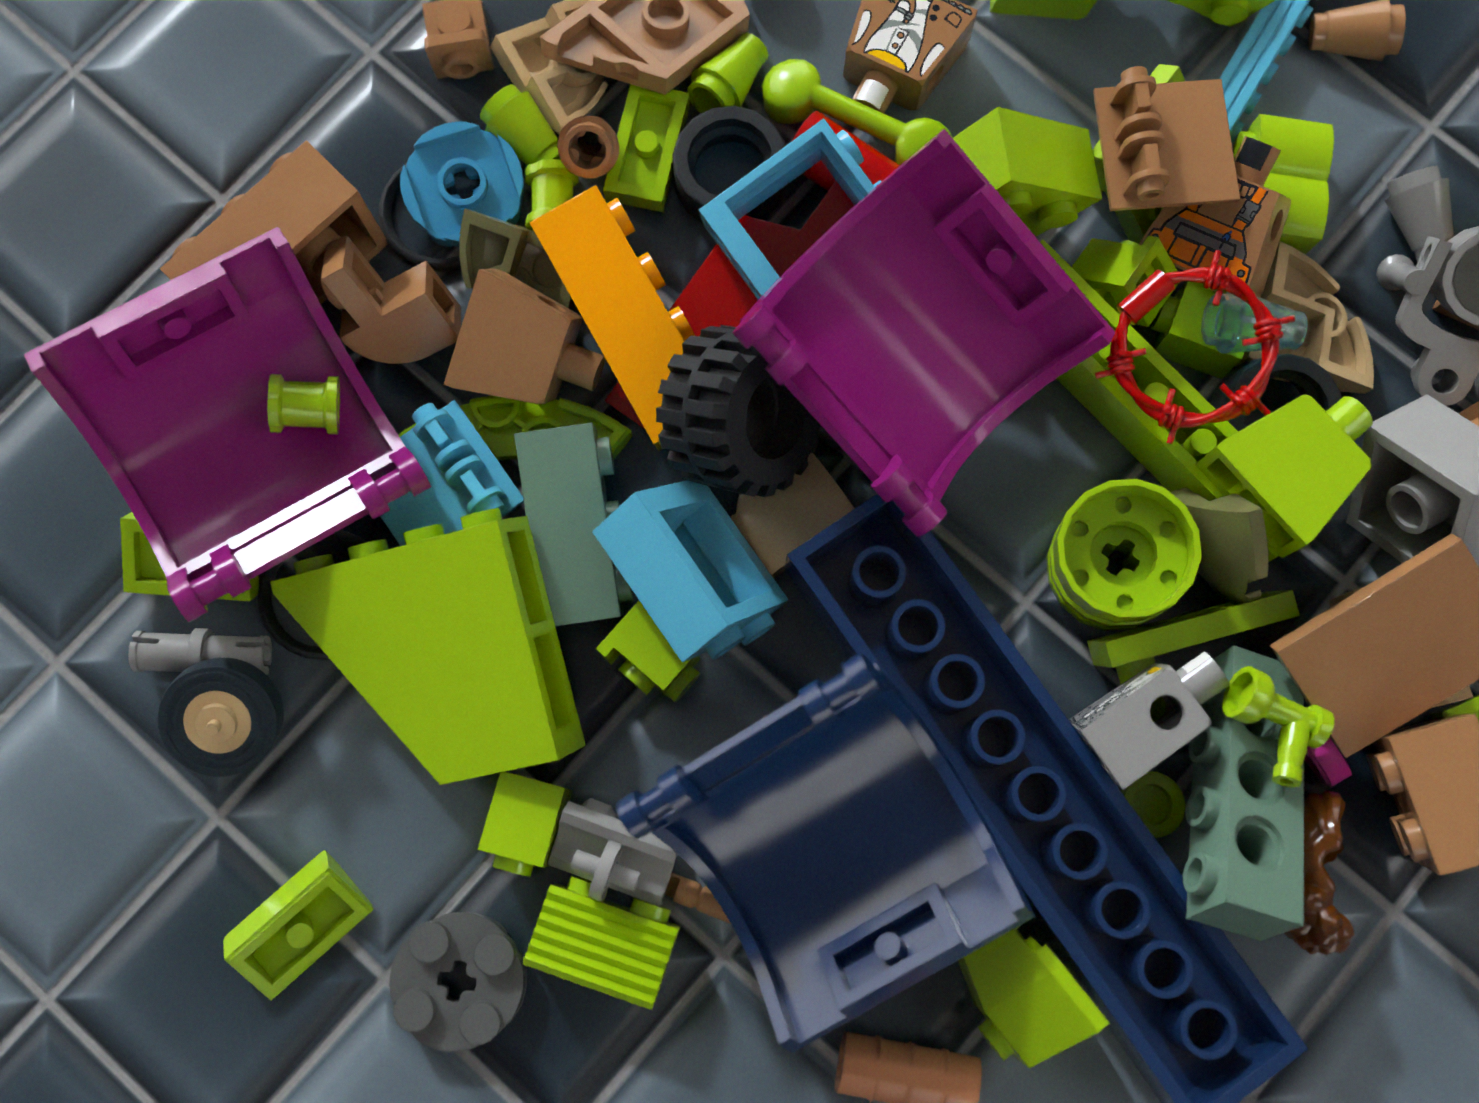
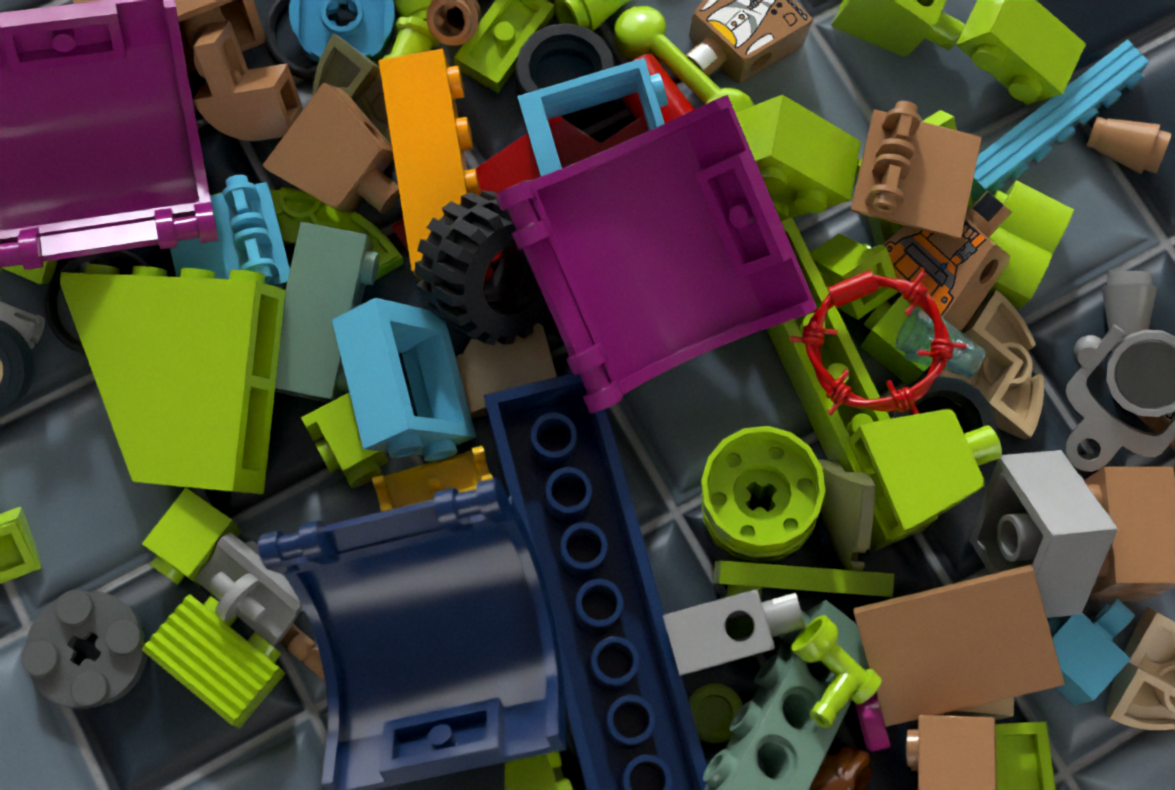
camera: 10 degrees right, 5 degrees down
(303, 404) = (143, 140): lime bush -> none
(764, 670) = (423, 481): none -> yellow hinge

